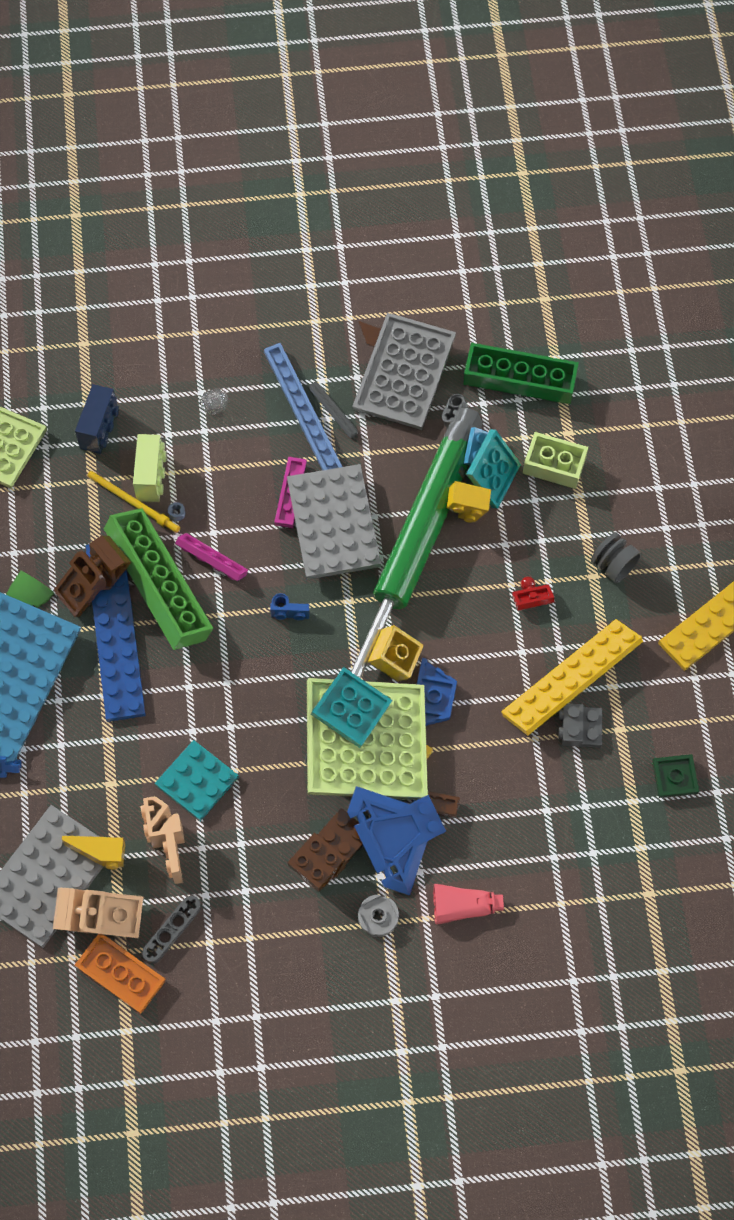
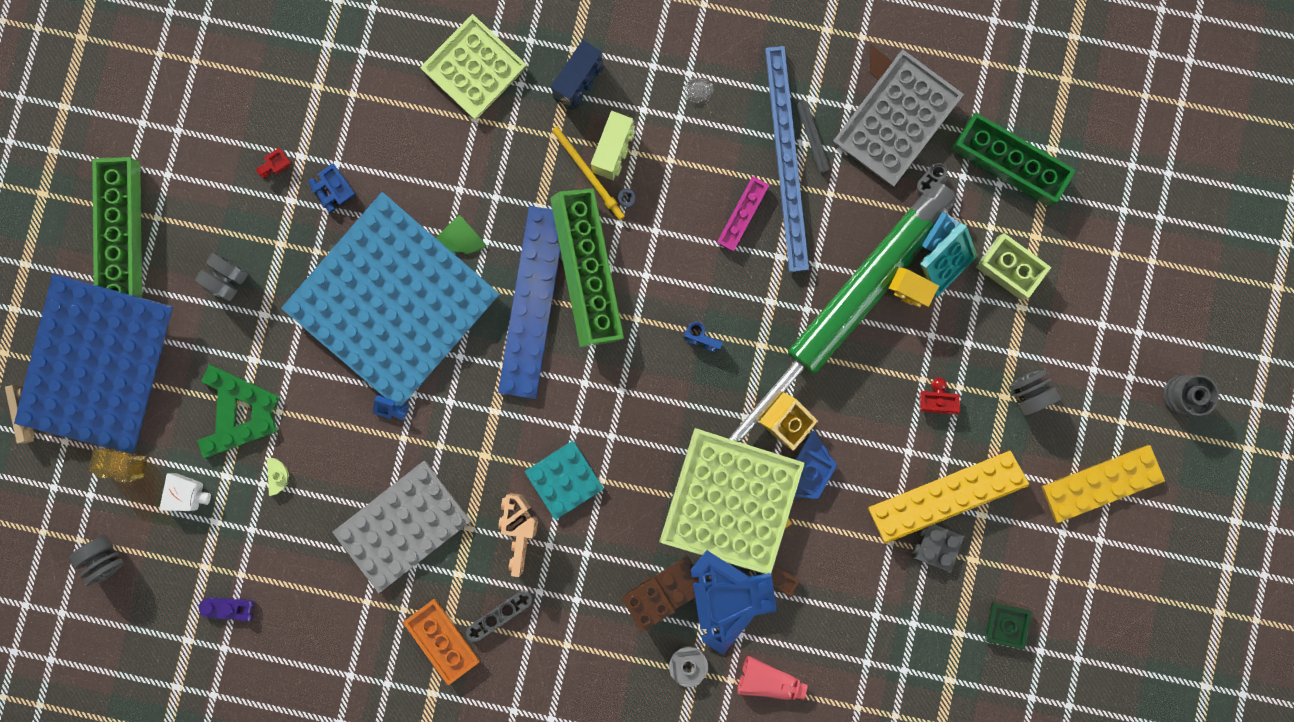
camera: 20 degrees right, 20 degrees up
(91, 574) = (525, 244): reddish brown piece -> none
(98, 912) = (435, 583): light nougat piece -> none
(102, 850) = (455, 526): yellow slope -> none
(209, 555) = (645, 258): dark pink plate -> none
(333, 521) = (774, 261): light grey plate -> none
(351, 707) = (728, 471): teal plate -> none

